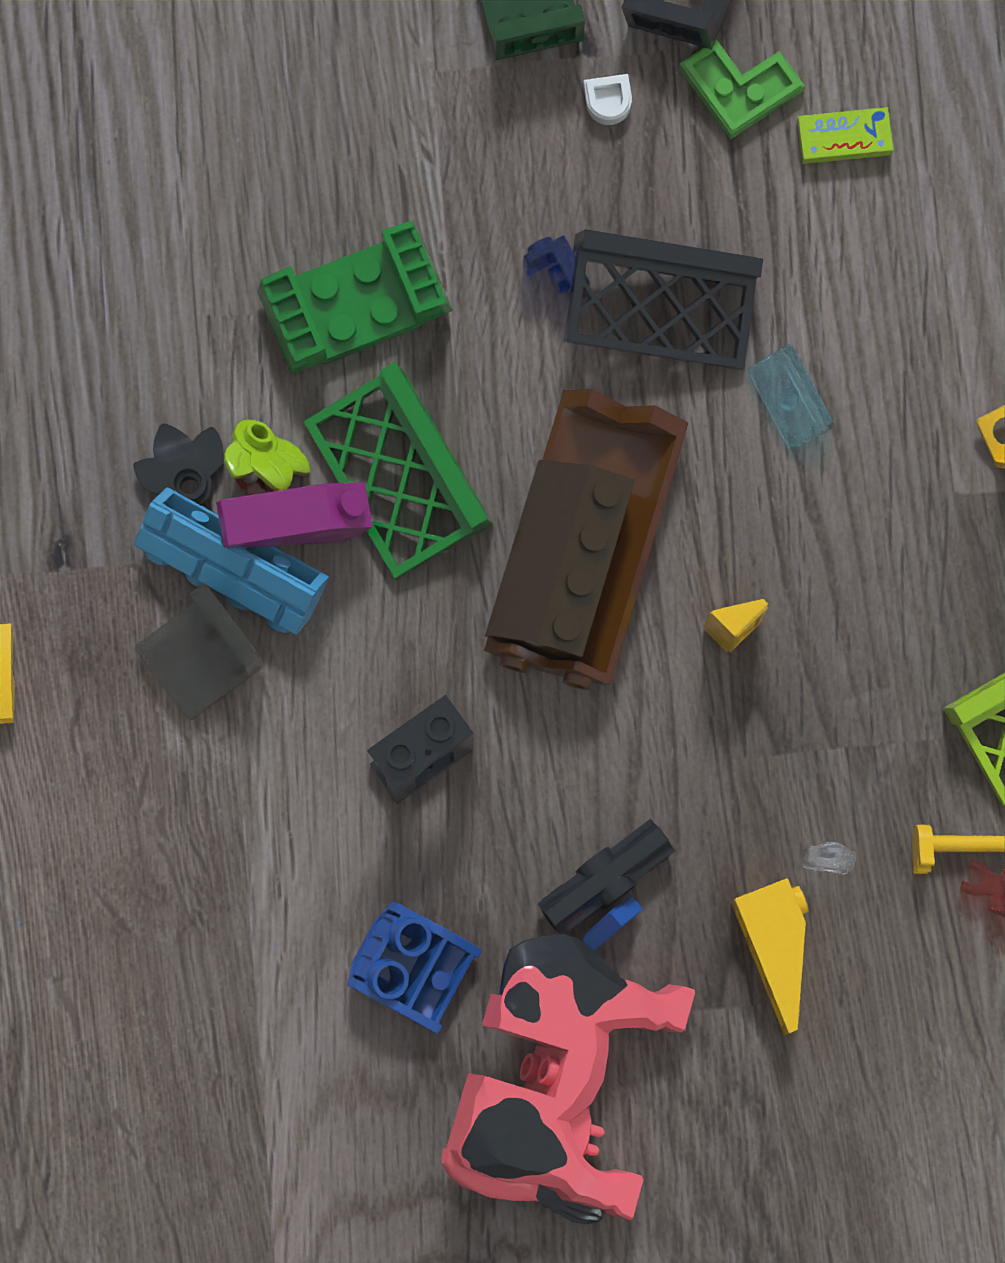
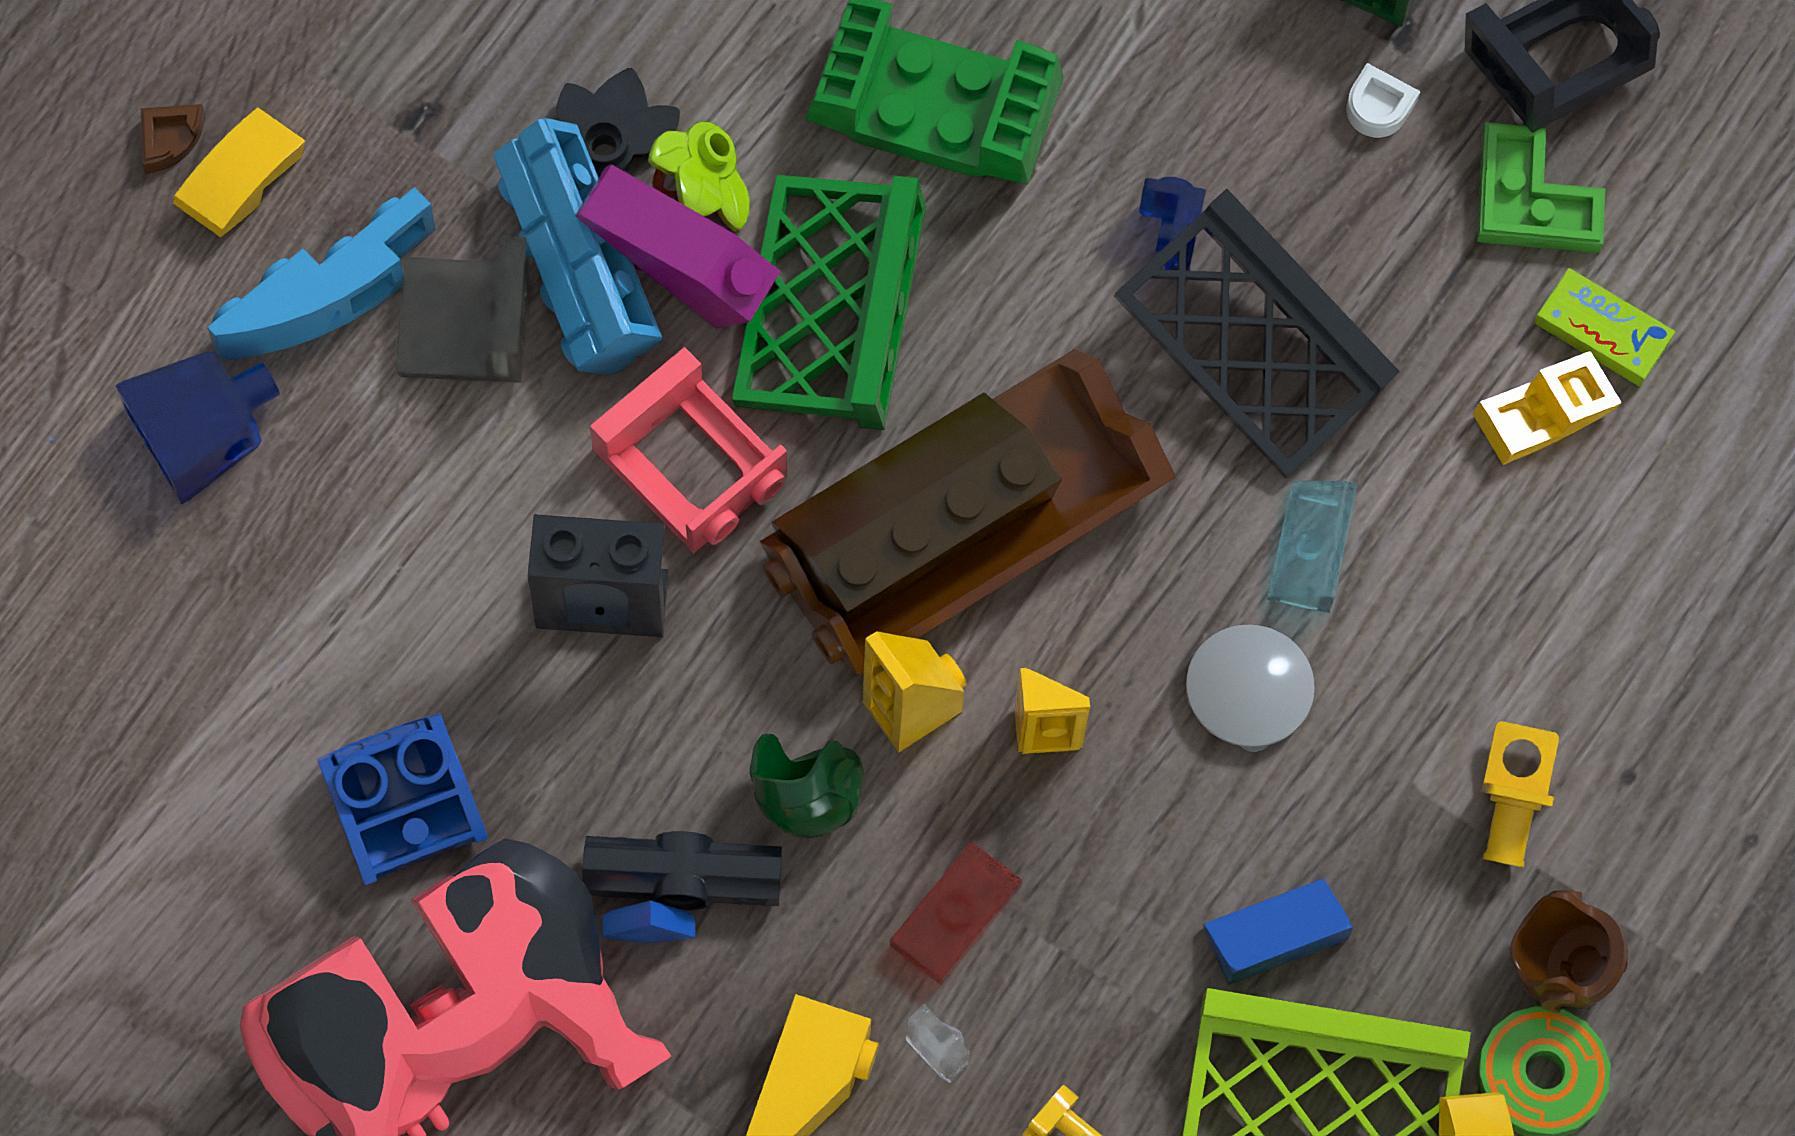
camera: 40 degrees right, 10 degrees down
(99, 719) = (308, 300): none -> dark azure slope
(99, 842) = (197, 418): none -> clear blue torso
(436, 603) = (681, 386): none -> coral panel
(637, 773) = (809, 792): none -> dark green cap
(649, 669) = (909, 687): none -> yellow slope
(773, 775) = (956, 913): none -> clear red plate
(824, 510) = (1250, 686): none -> light grey dish
(852, 210) = (1546, 409): none -> yellow slope
(954, 639) = (1277, 931): none -> blue slope

